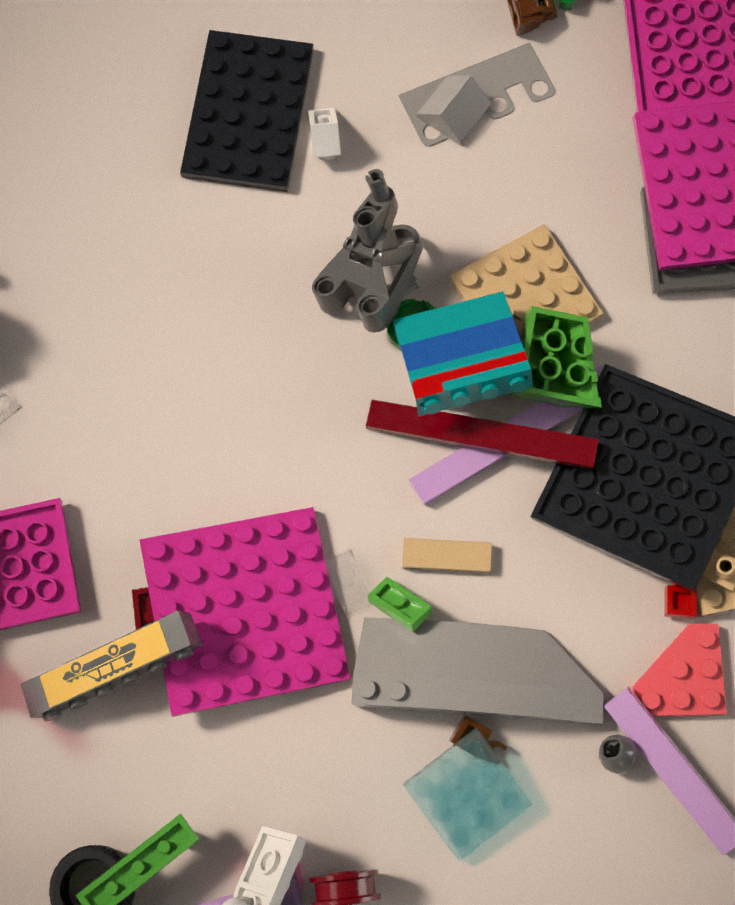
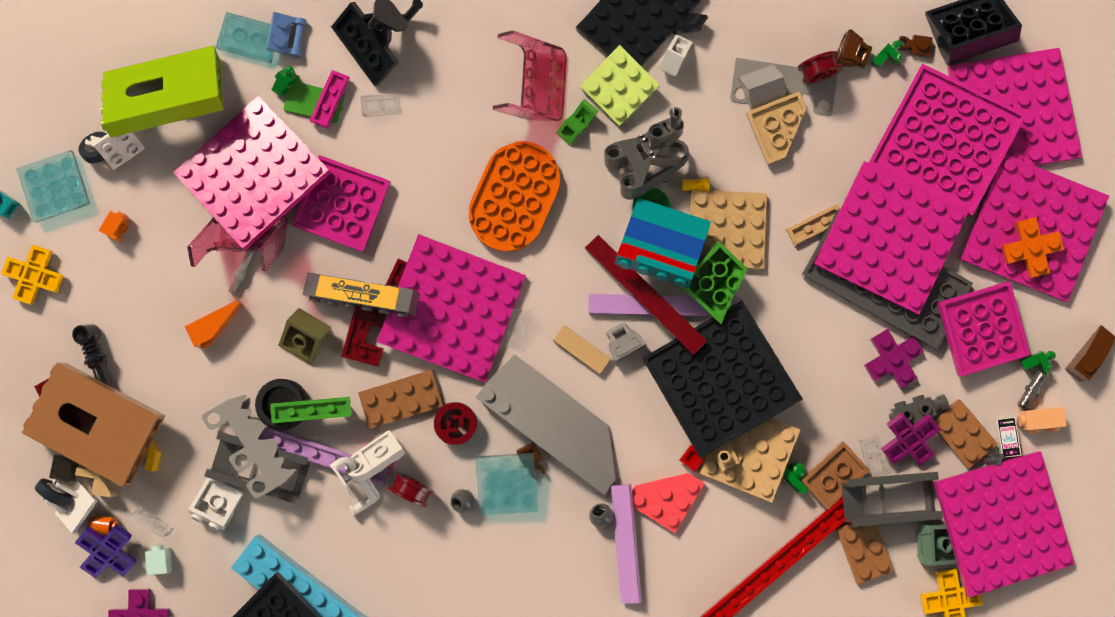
camera: 30 degrees right, 10 degrees up
(67, 773) = (304, 335): none -> olive slope
(144, 740) = (355, 343): none -> dark red plate
(175, 254) = (541, 81): none -> clear pink windscreen
(234, 419) = (514, 196): none -> orange plate
(251, 775) = (400, 399): none -> medium nougat plate
(256, 281) = (577, 122): none -> bright green slope
(279, 206) = (619, 85): none -> yellowish green plate
(318, 86) = (691, 23): none -> black piece
(351, 734) = (443, 434): none -> dark red wheel
(399, 604) = (537, 360): bright green plate -> none
(423, 857) = (462, 501): none -> dark grey piece
(458, 261) = (696, 184): none -> yellow pin
(498, 512) = (625, 344): none -> light grey piece
(501, 140) = (777, 125): none -> tan plate
(507, 41) = (820, 67): none -> dark red wheel
(623, 230) = (812, 226): none -> tan tile

